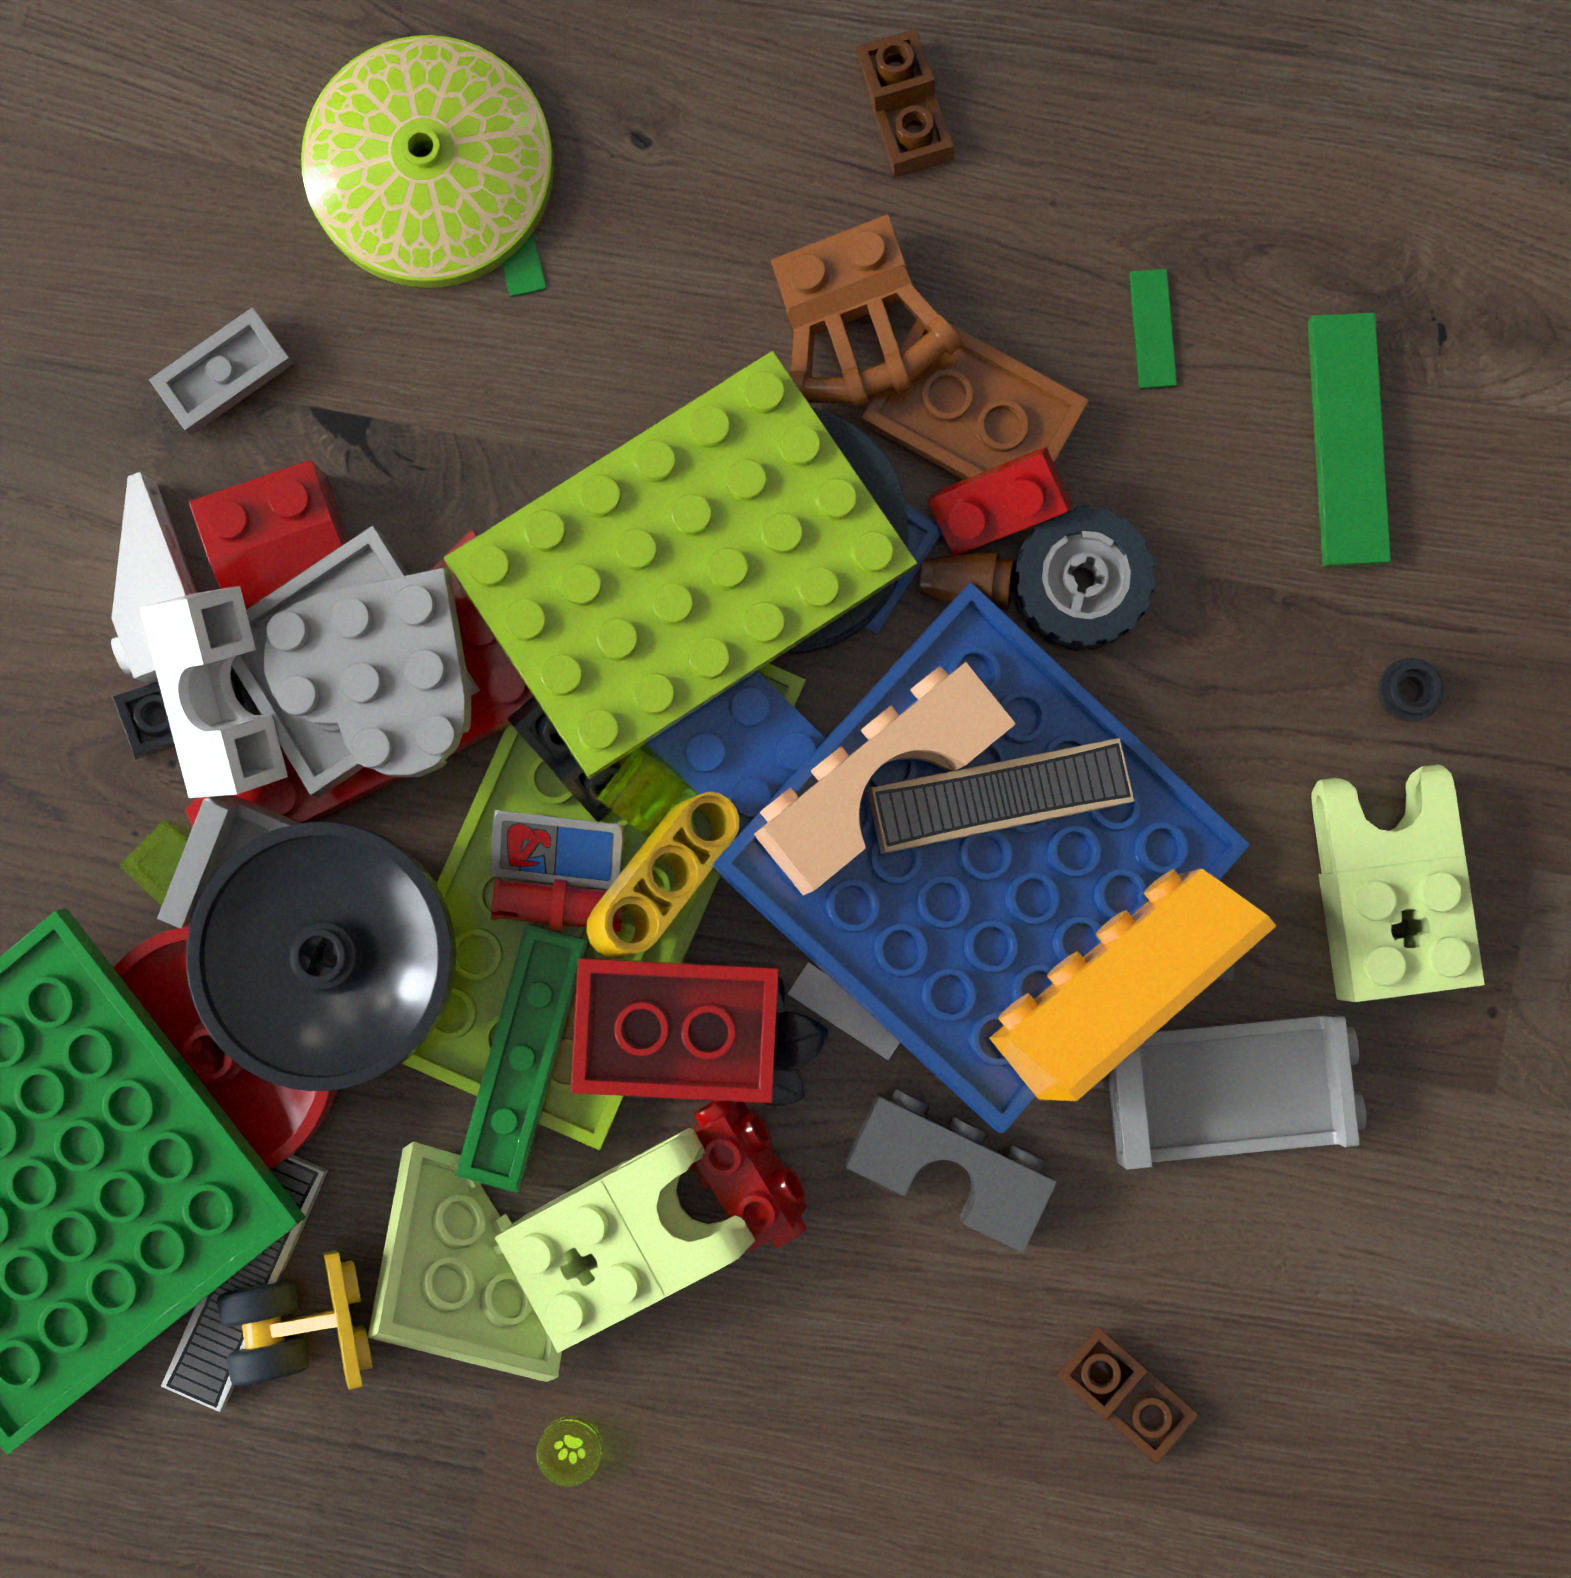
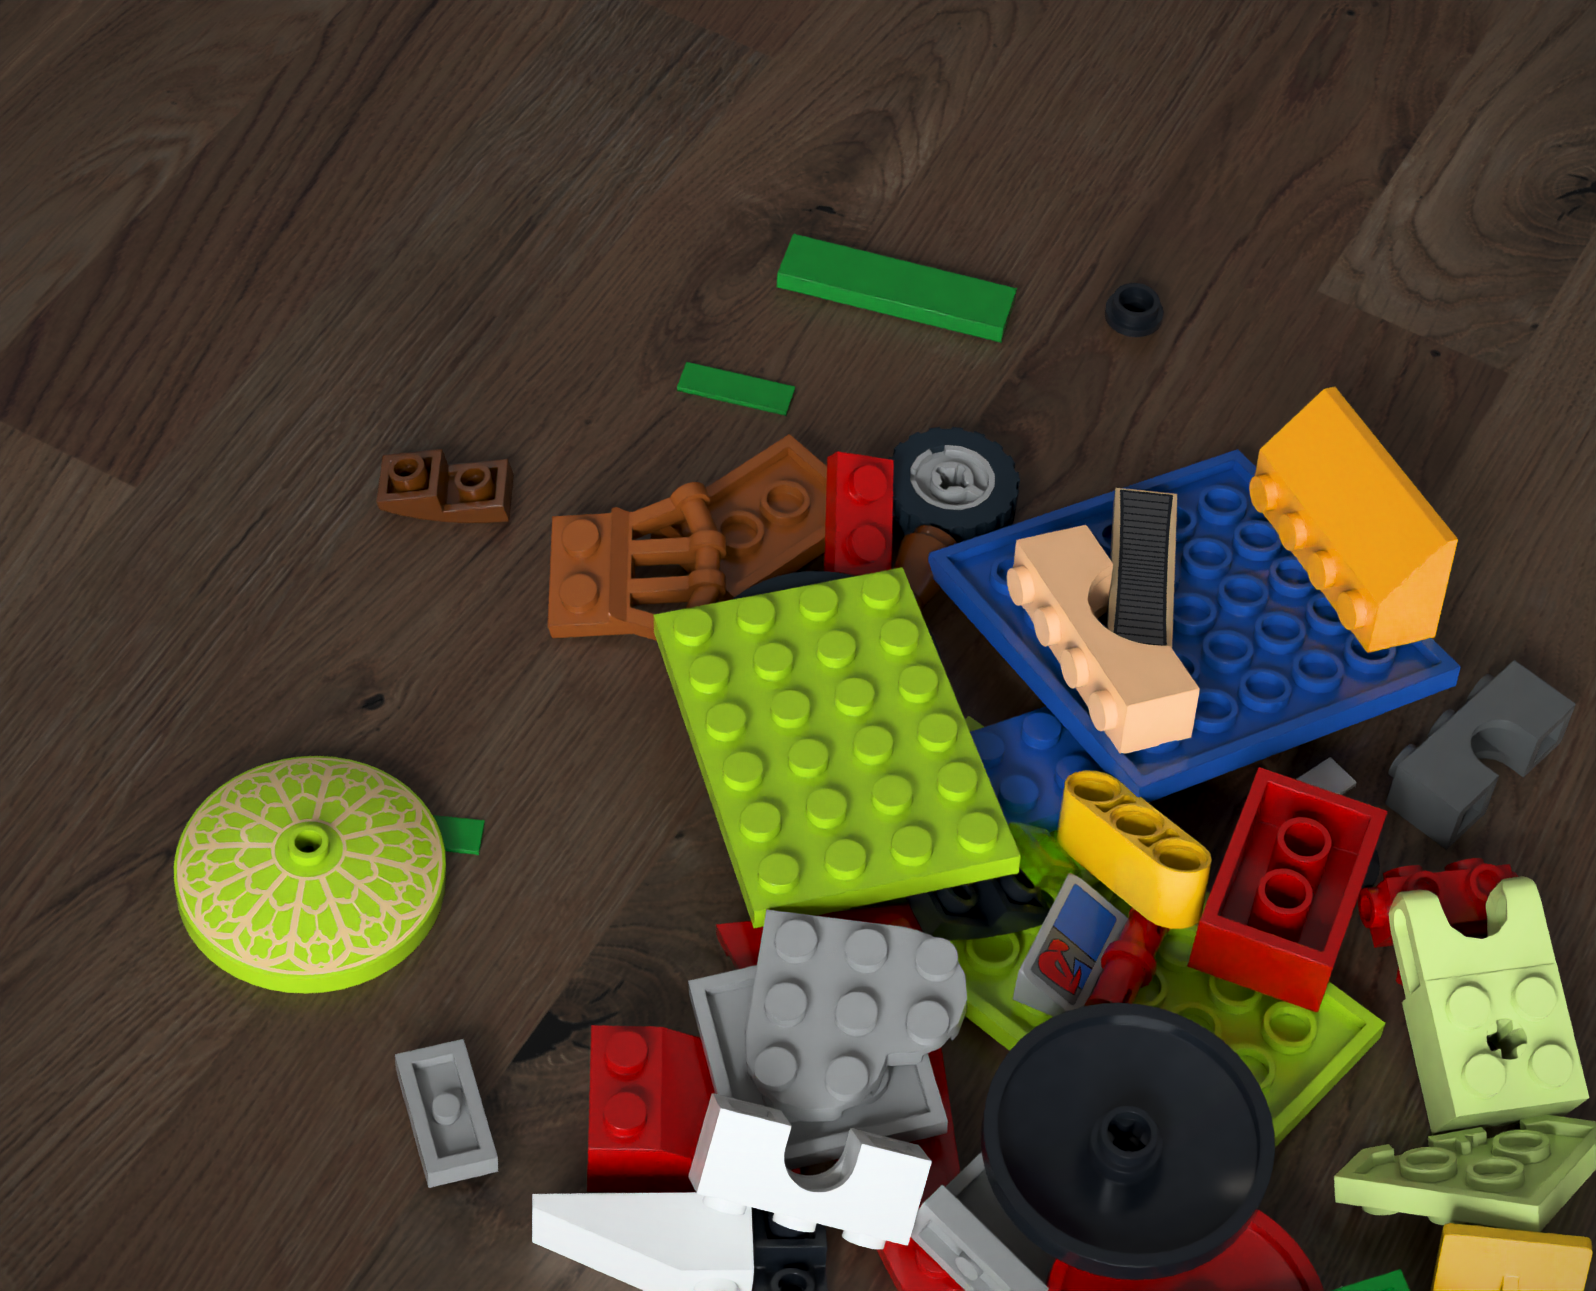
camera: 75 degrees left, 35 degrees down
(522, 1059) = (1284, 1054): green tile -> none
(1237, 1090) = (1479, 492): light grey panel -> none
(1382, 874) = (1299, 348): yellowish green brick -> none

